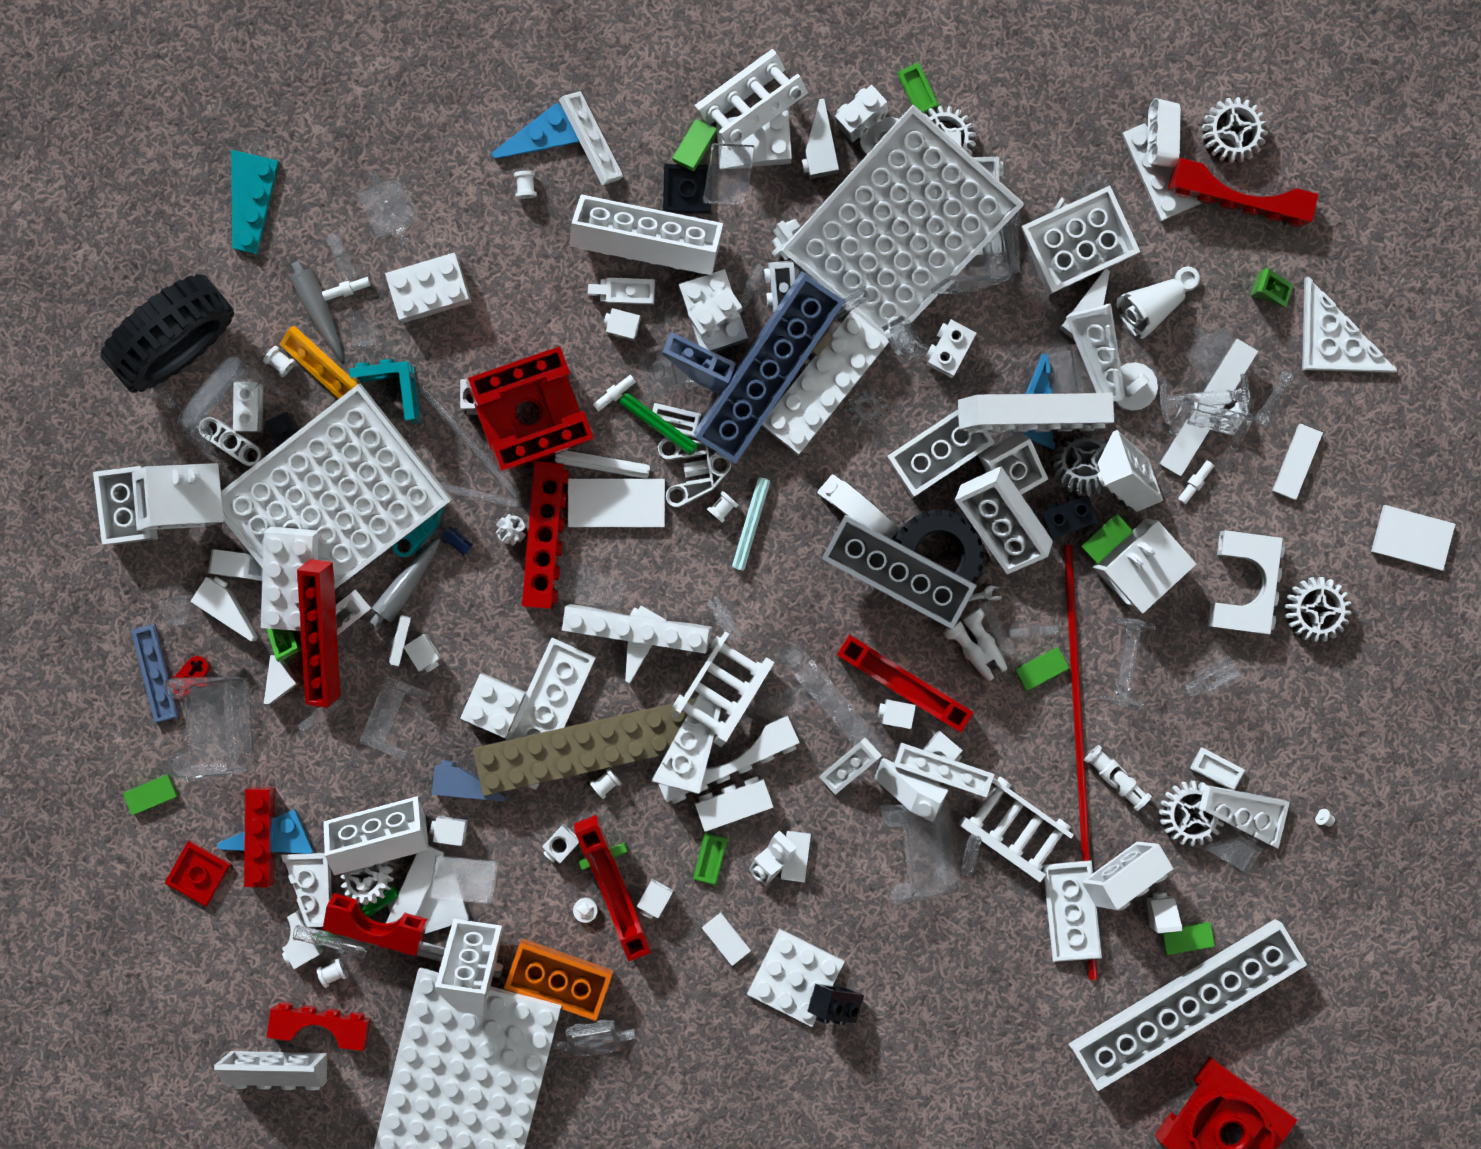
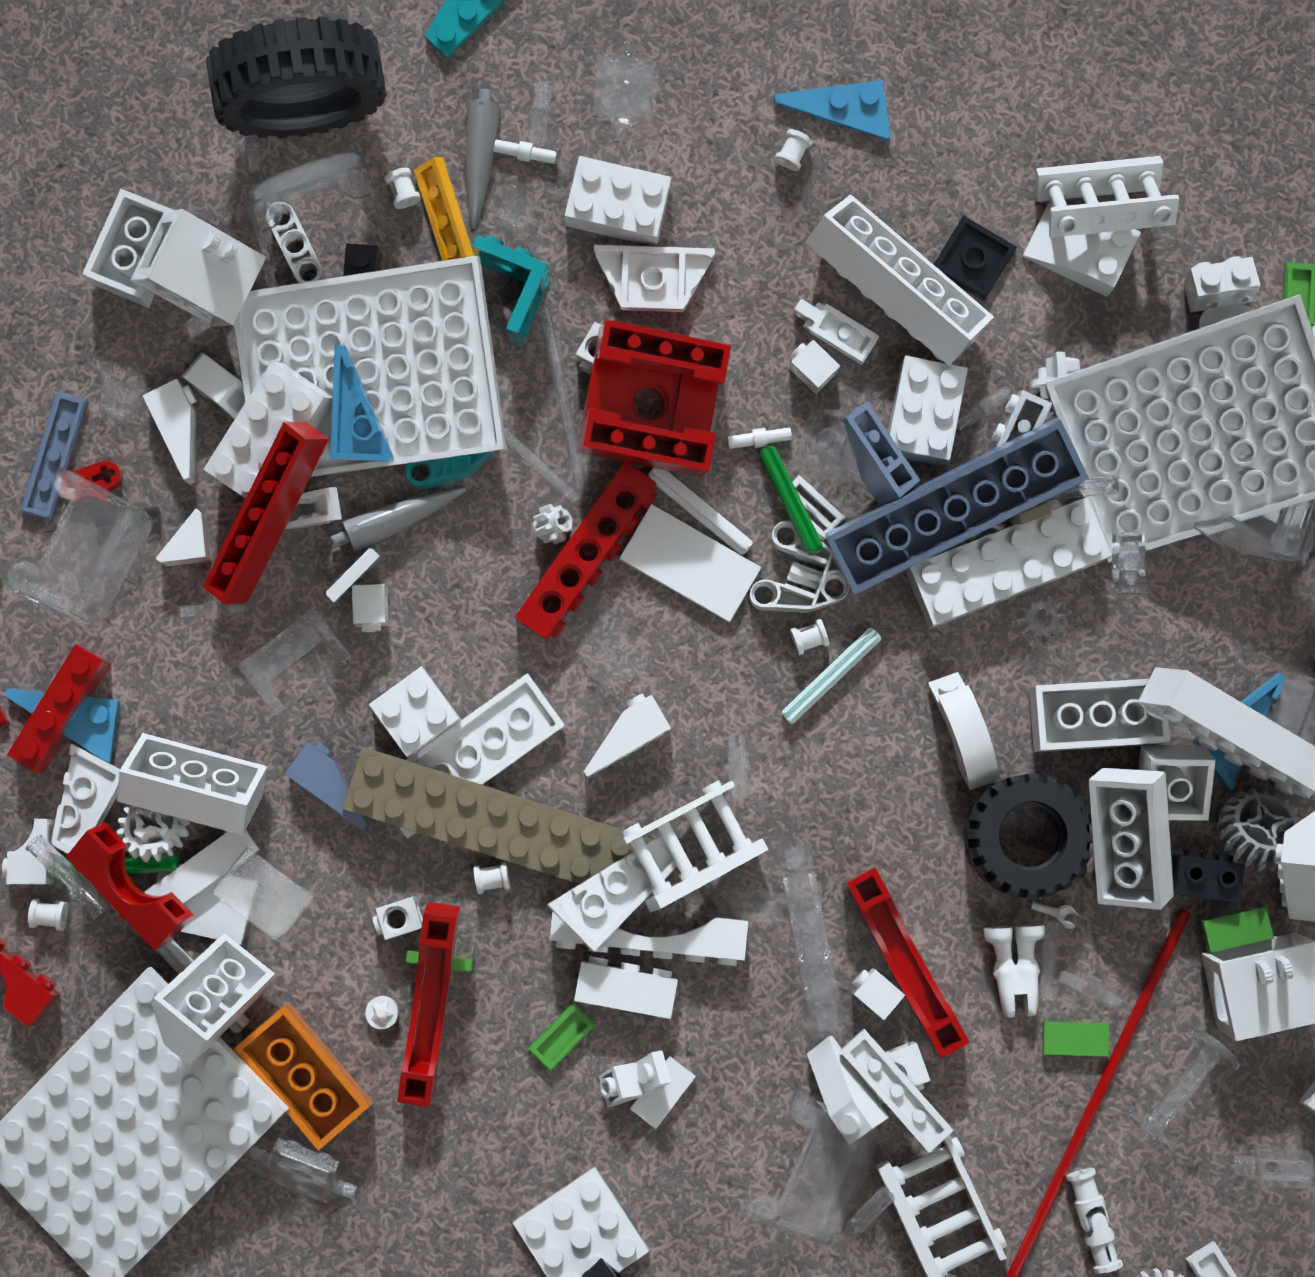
camera: 30 degrees right, 5 degrees down
(248, 410) = (336, 221): white brick -> none
(285, 644) = (219, 505): bright green slope -> none
(343, 541) = (354, 423): none -> dark azure wing
(449, 830) = (279, 827): white brick -> none
(456, 540) = (483, 501): dark blue pin -> none
(481, 324) = (653, 276): none -> white wing
(591, 138) = (897, 140): white tile -> none
(636, 629) = (631, 719): white arch -> none
(654, 899) = (469, 1046): white brick -> none
(694, 145) = (1010, 213): bright green tile -> none
(719, 309) = (930, 407): white brick -> none
(726, 939) = (526, 1143): white tile -> none
(728, 173) = (1032, 265): clear piece -> none
(820, 151) = (1149, 301): white slope -> none
(850, 766) = (788, 1022): white plate -> none
(899, 572) = (977, 826): light grey brick -> none
(952, 349) = (1175, 605): white brick -> none

